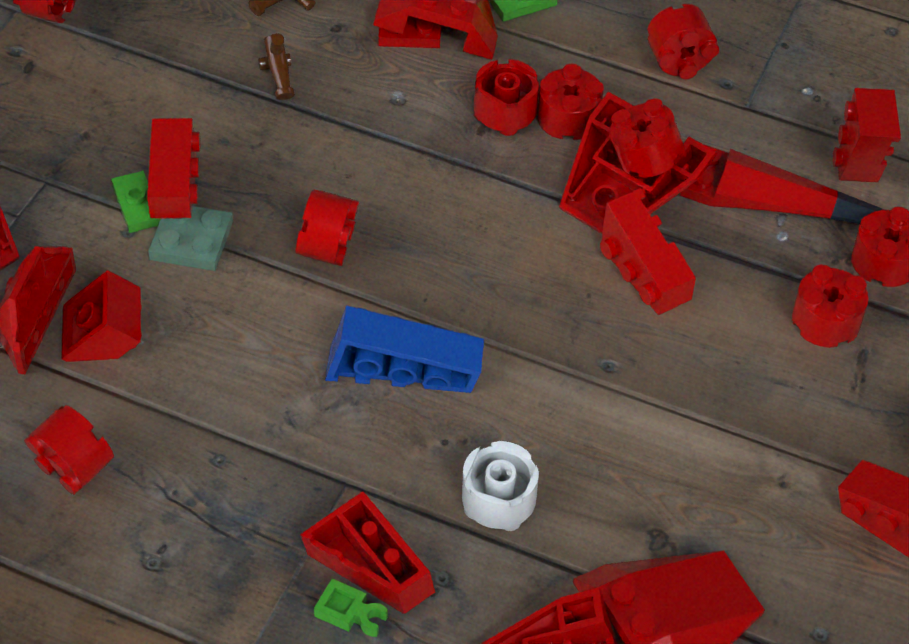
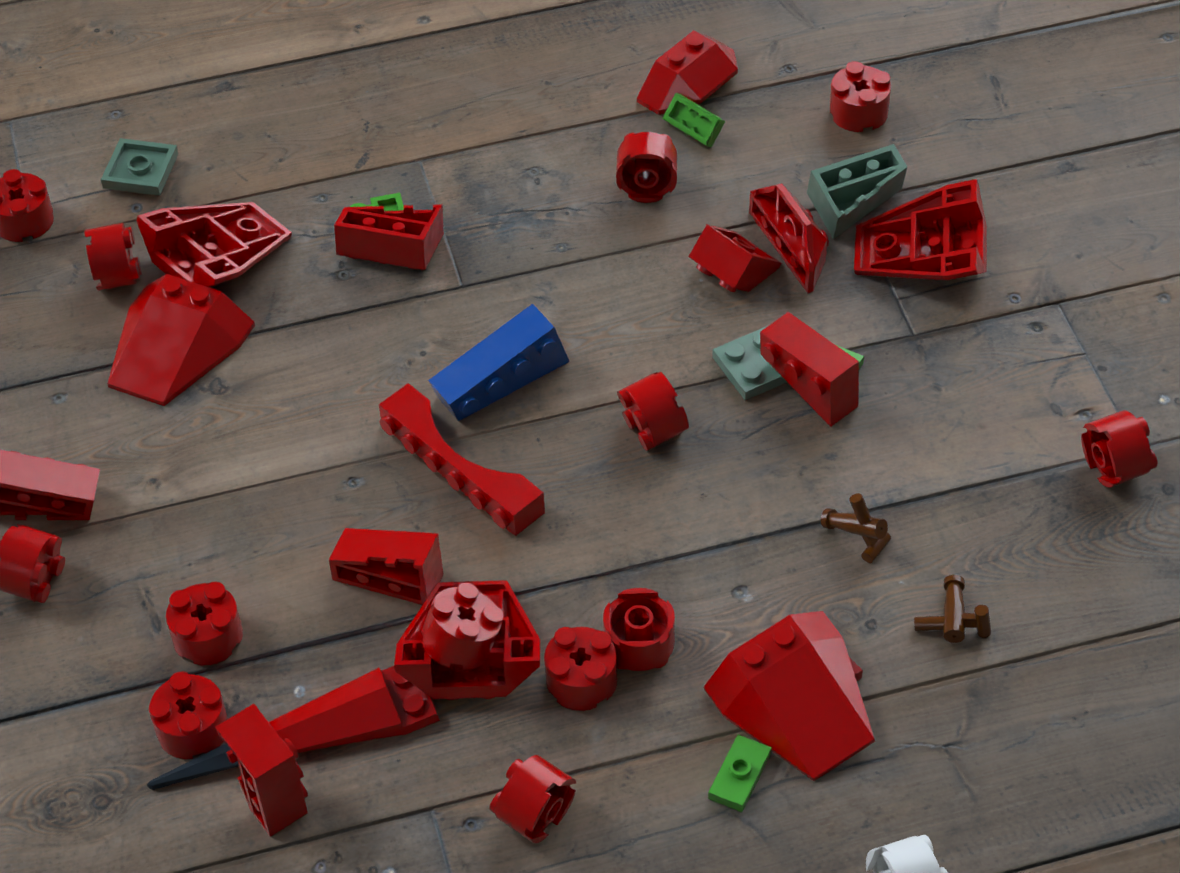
camera: 145 degrees right, 0 degrees up
(499, 485) = (347, 325): white brick -> none
(518, 361) = (503, 495): none -> red arch

